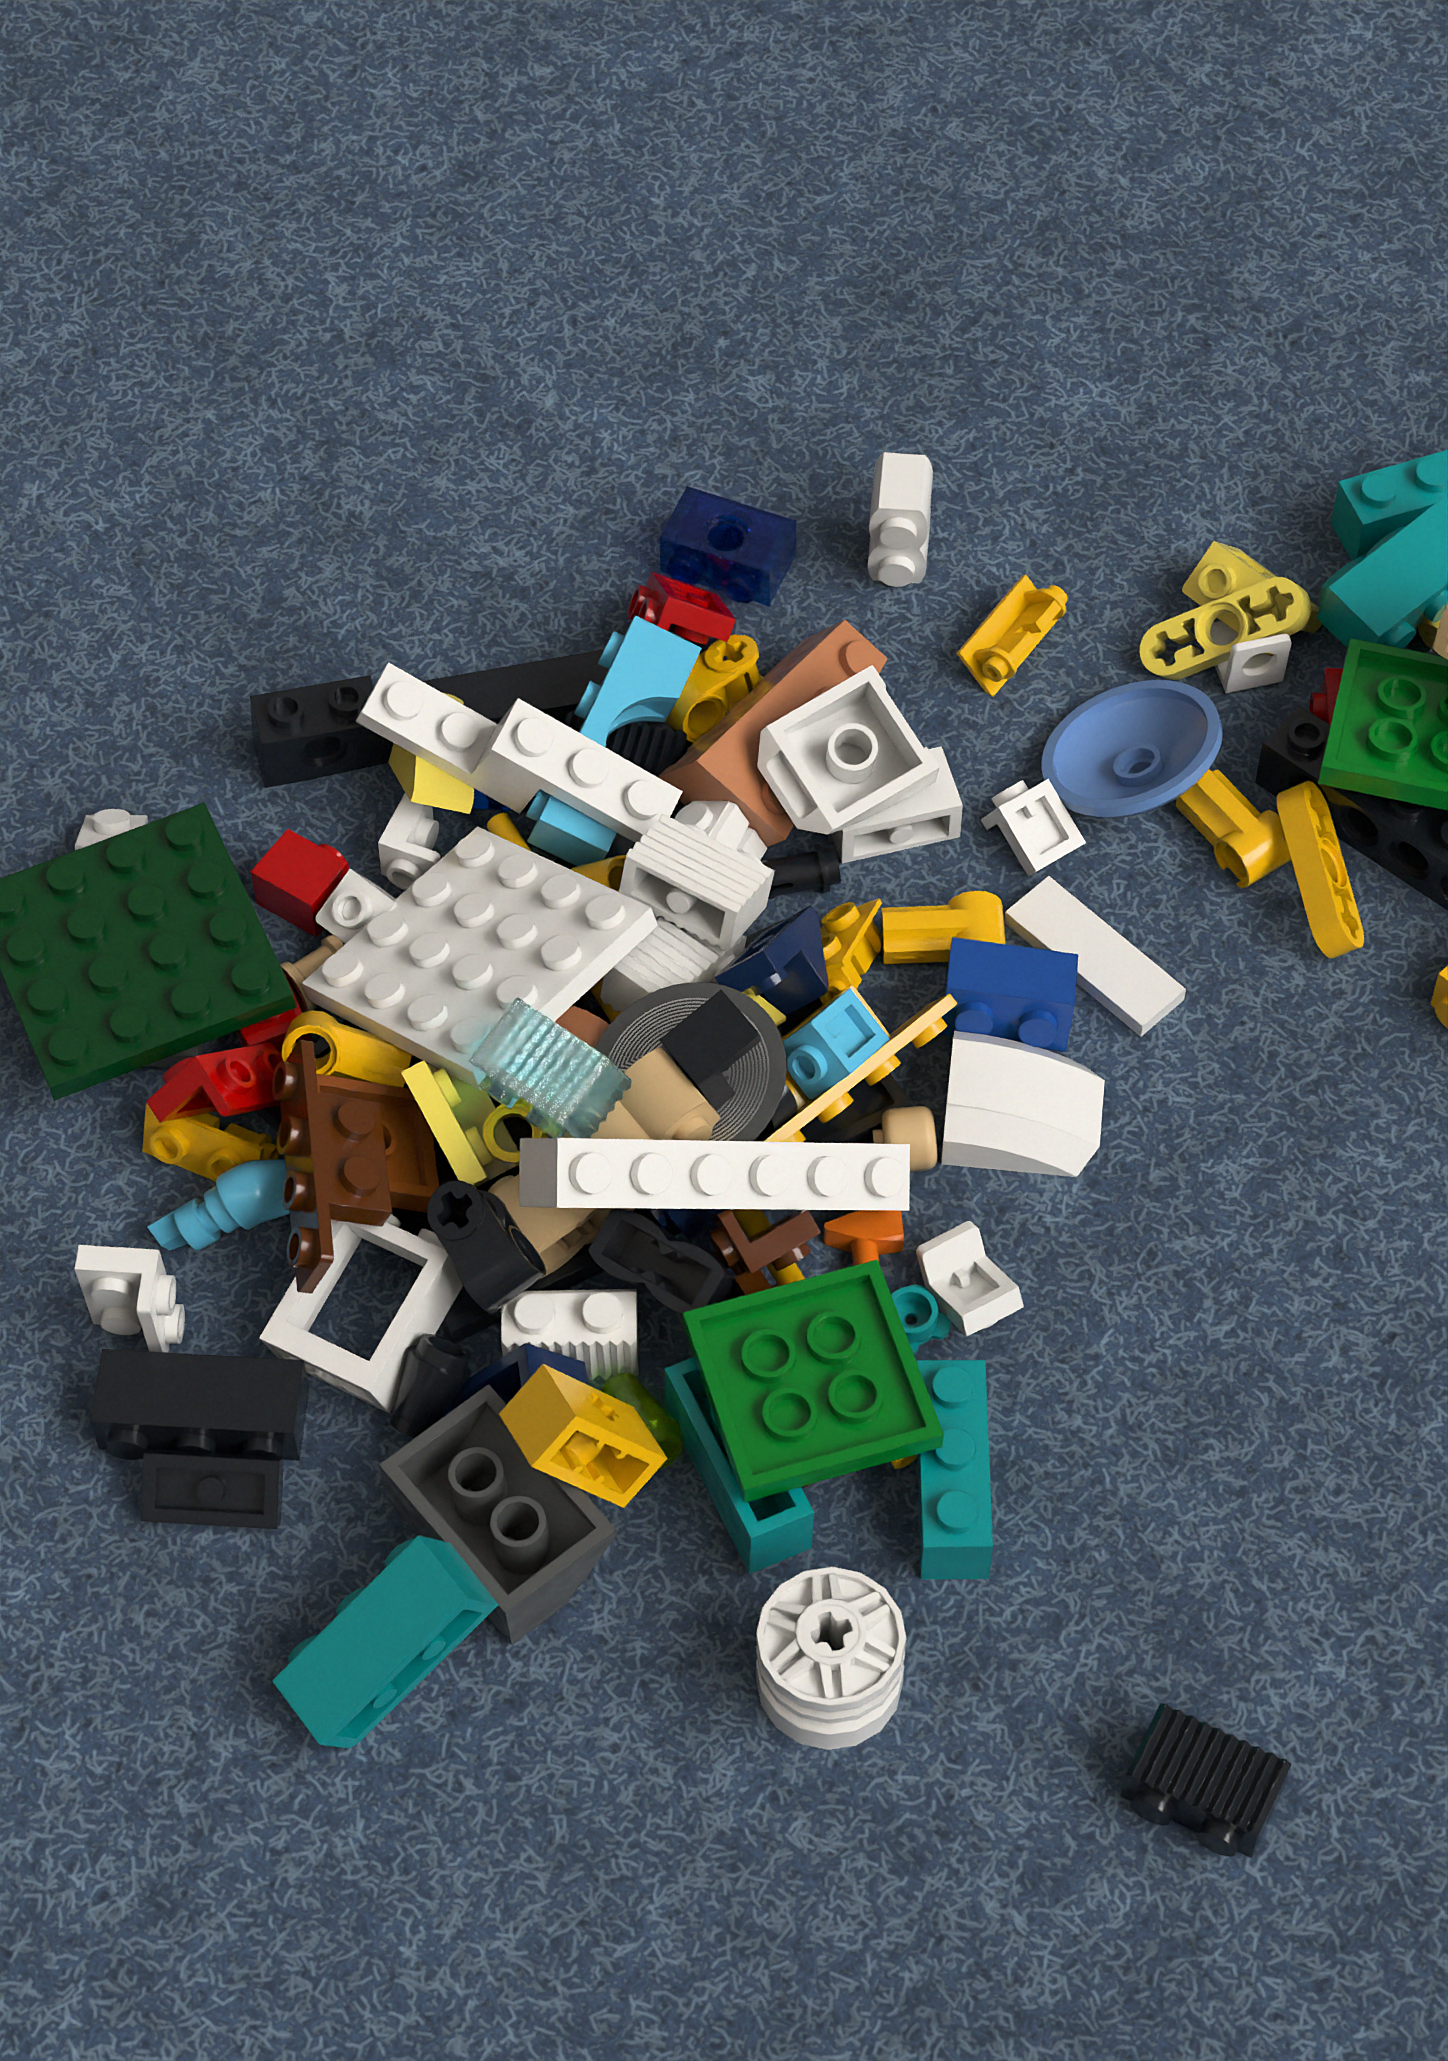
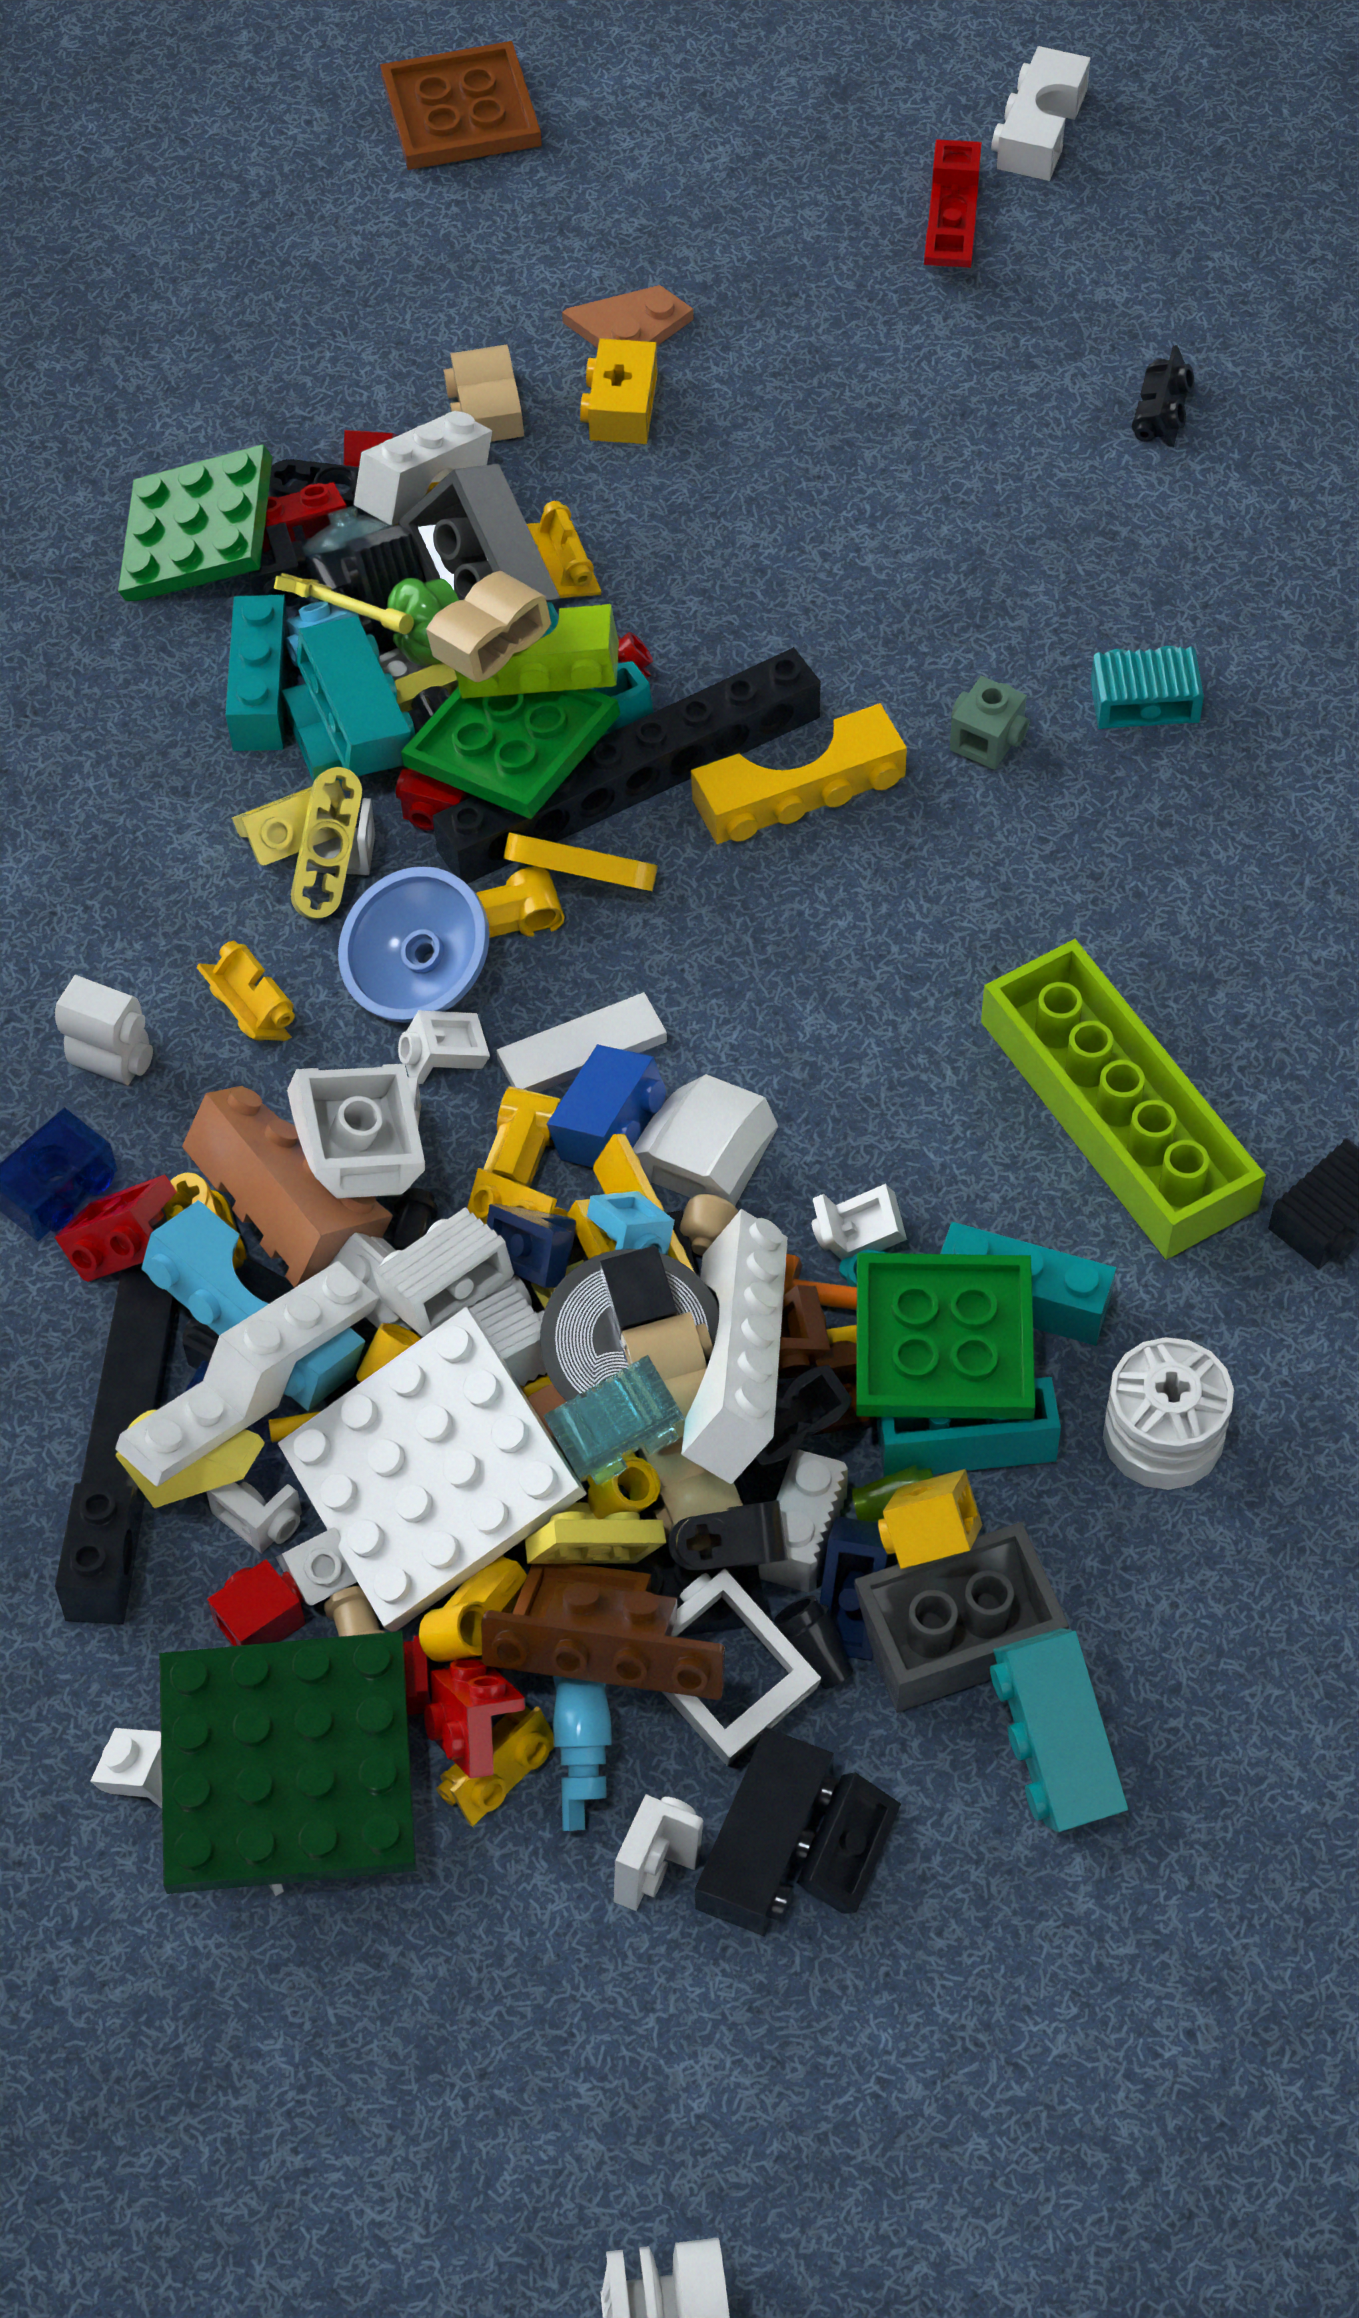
camera: 70 degrees left, 0 degrees up
(1242, 1502) = (1122, 1099): none -> lime brick

